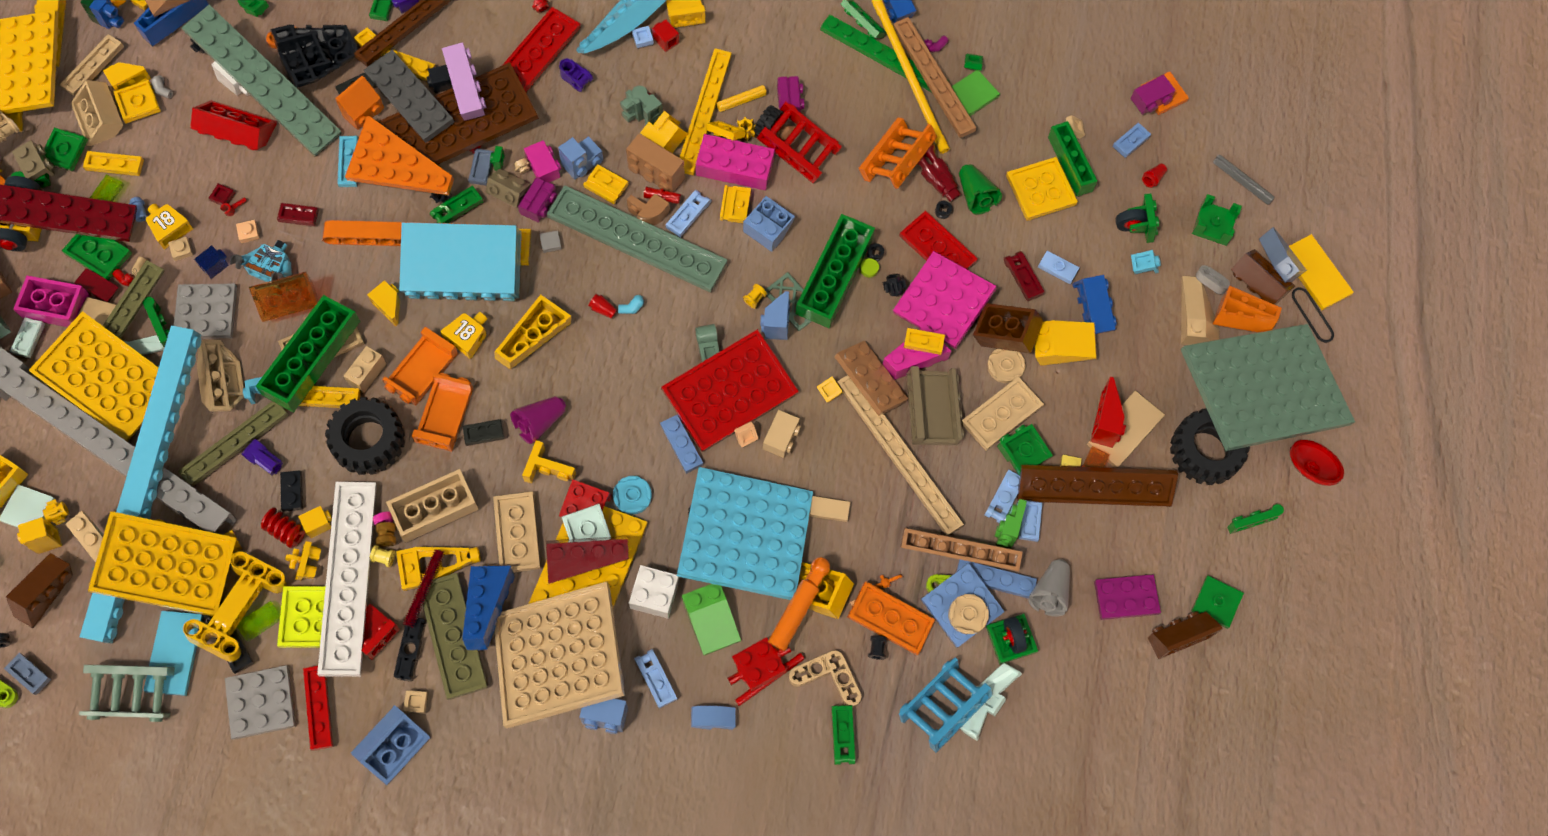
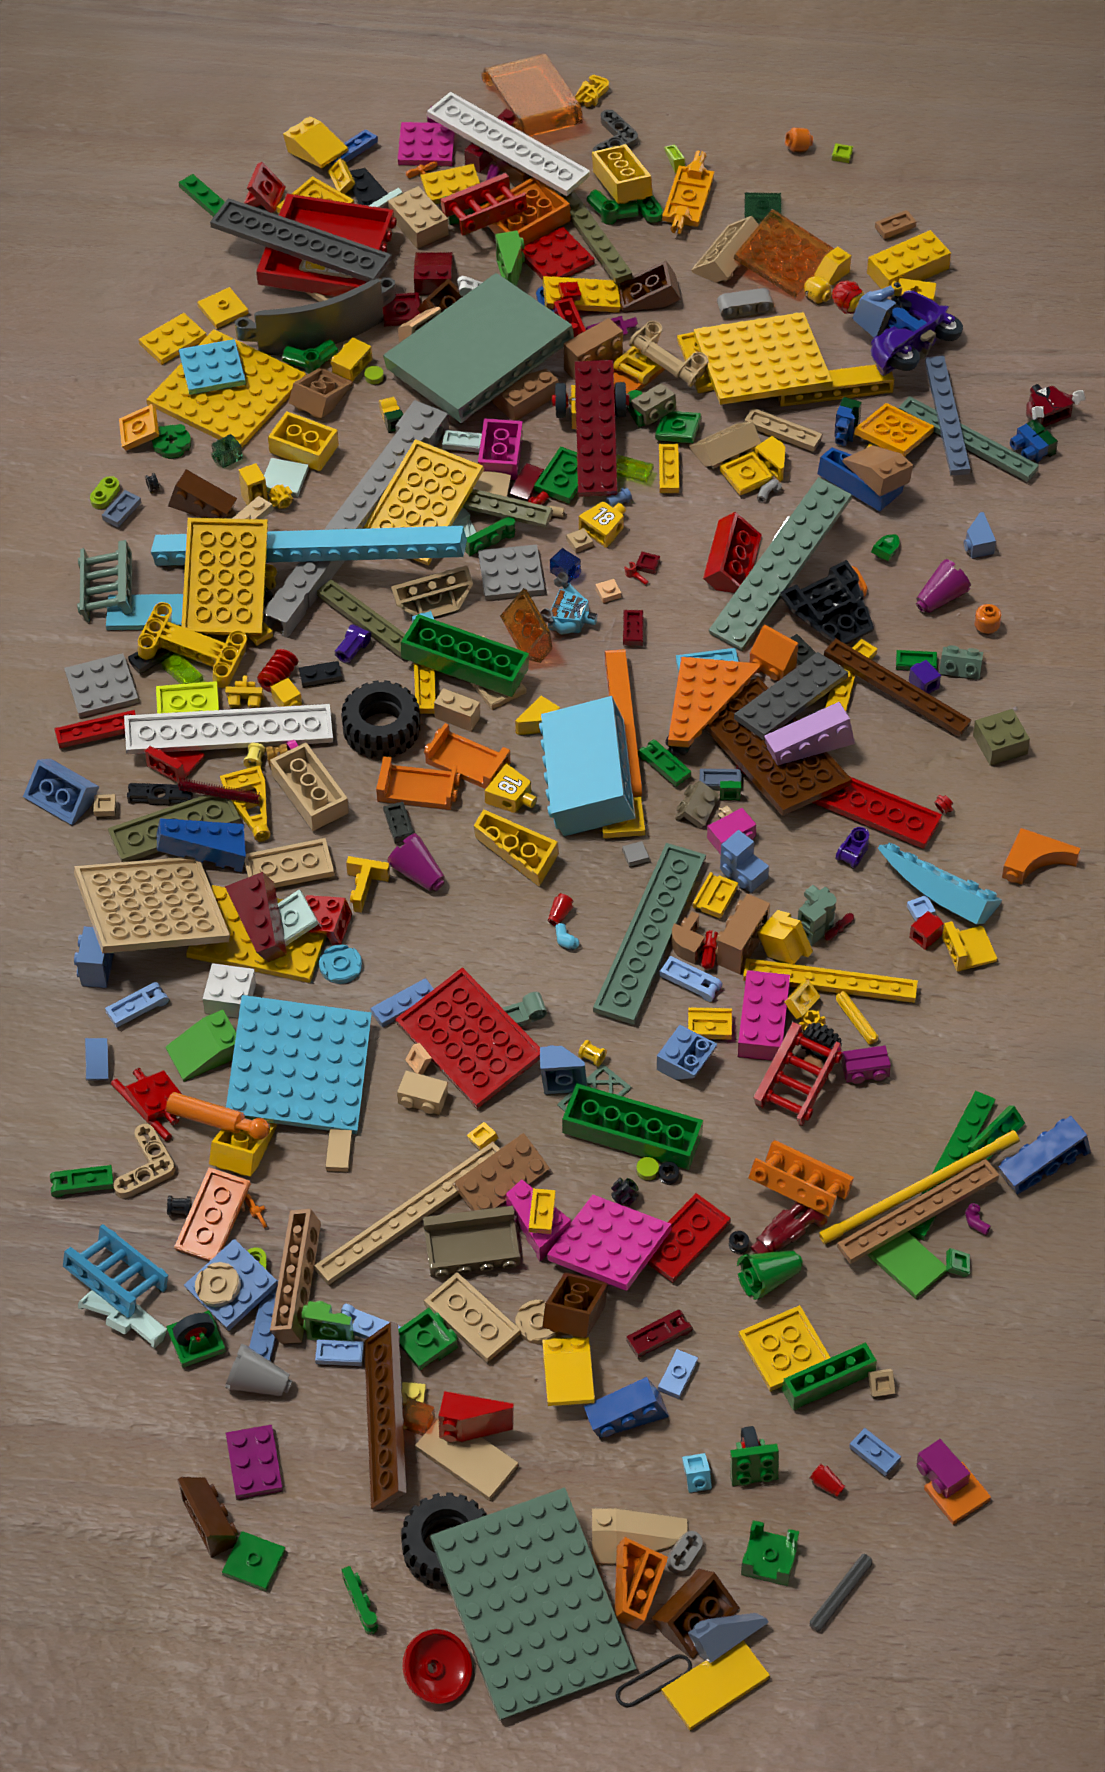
camera: 90 degrees right, 15 degrees down
(537, 200) = (683, 832): magenta brick -> none

